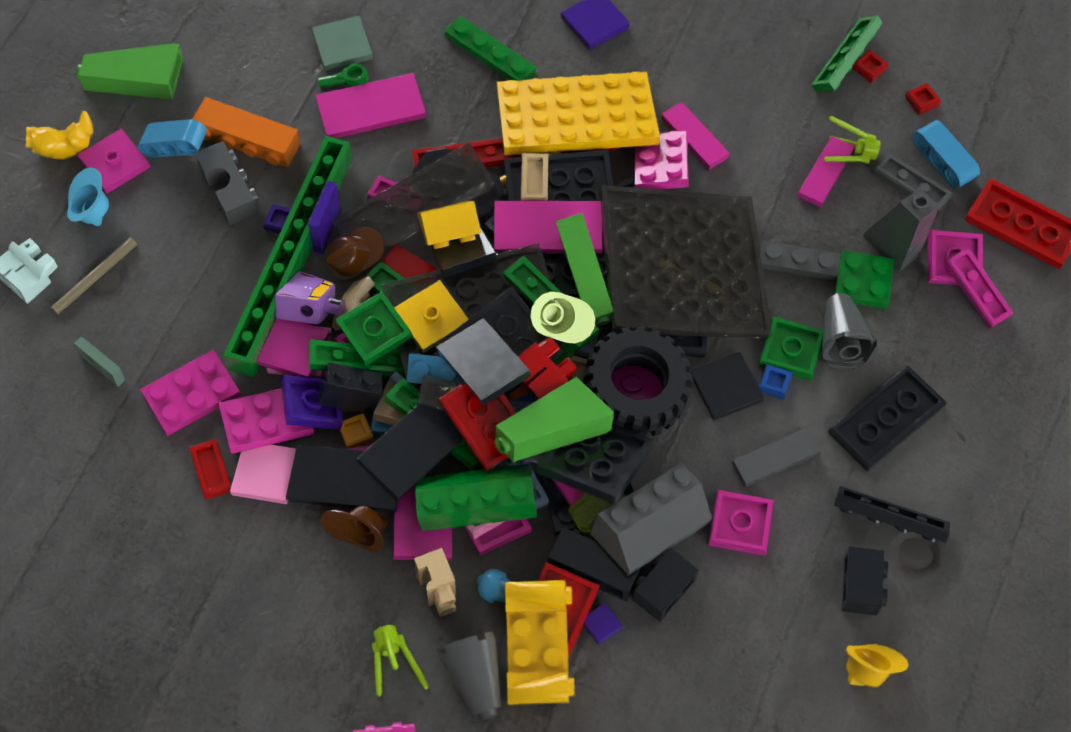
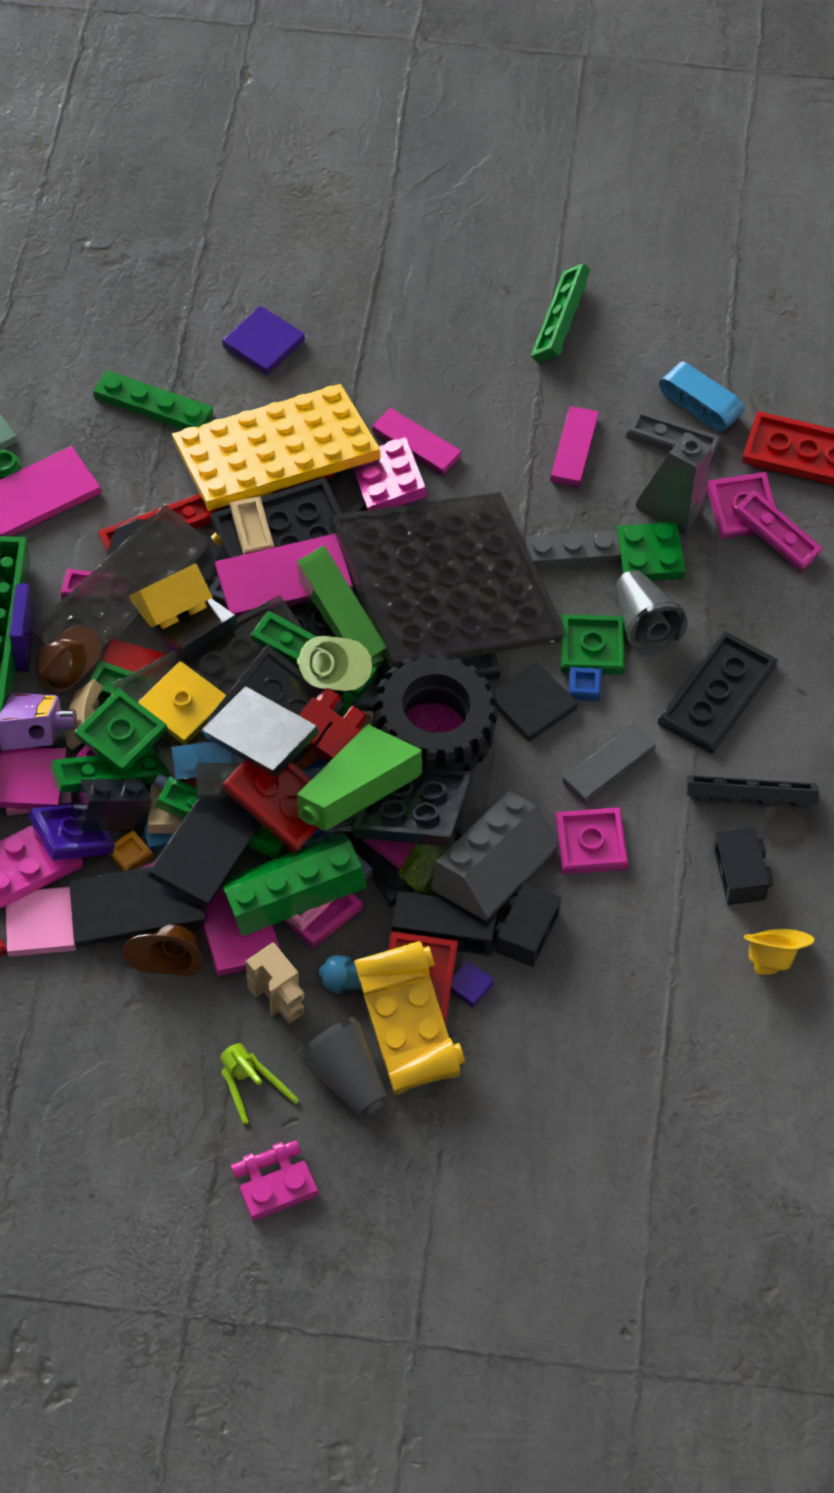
camera: 15 degrees left, 5 degrees down
(867, 148) = (612, 410): lime plant -> none
(870, 66) = (590, 321): red tile -> none
(923, 99) = (659, 343): red tile -> none

